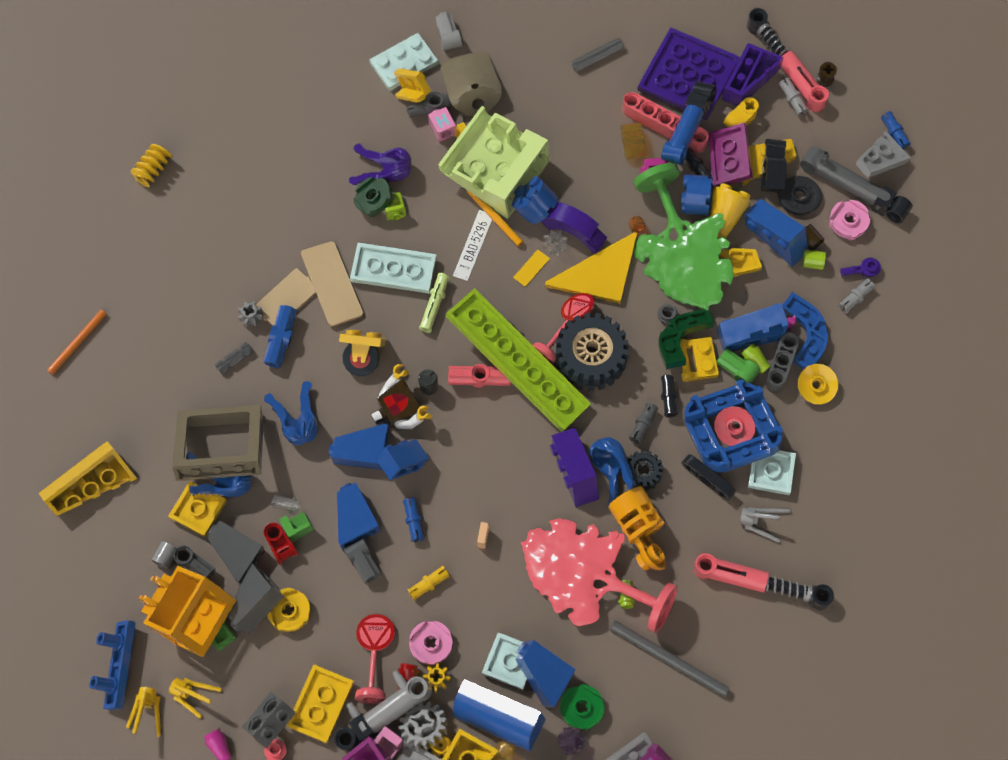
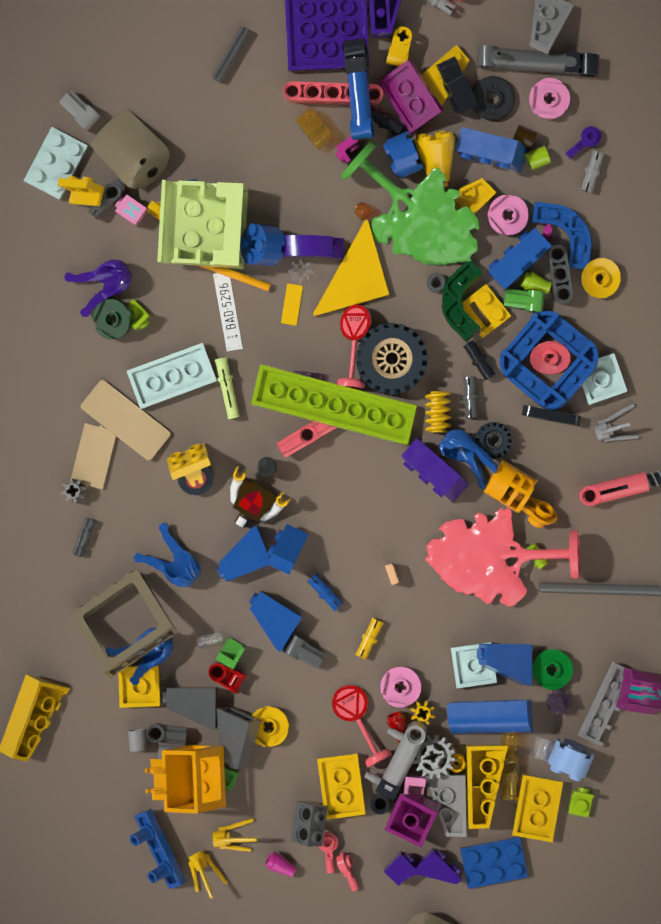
camera: 30 degrees left, 20 degrees up
(280, 336) = (113, 496): blue piece -> none
(605, 417) = (437, 411): none -> yellow piece
(767, 283) = (519, 215): none -> bright pink plate

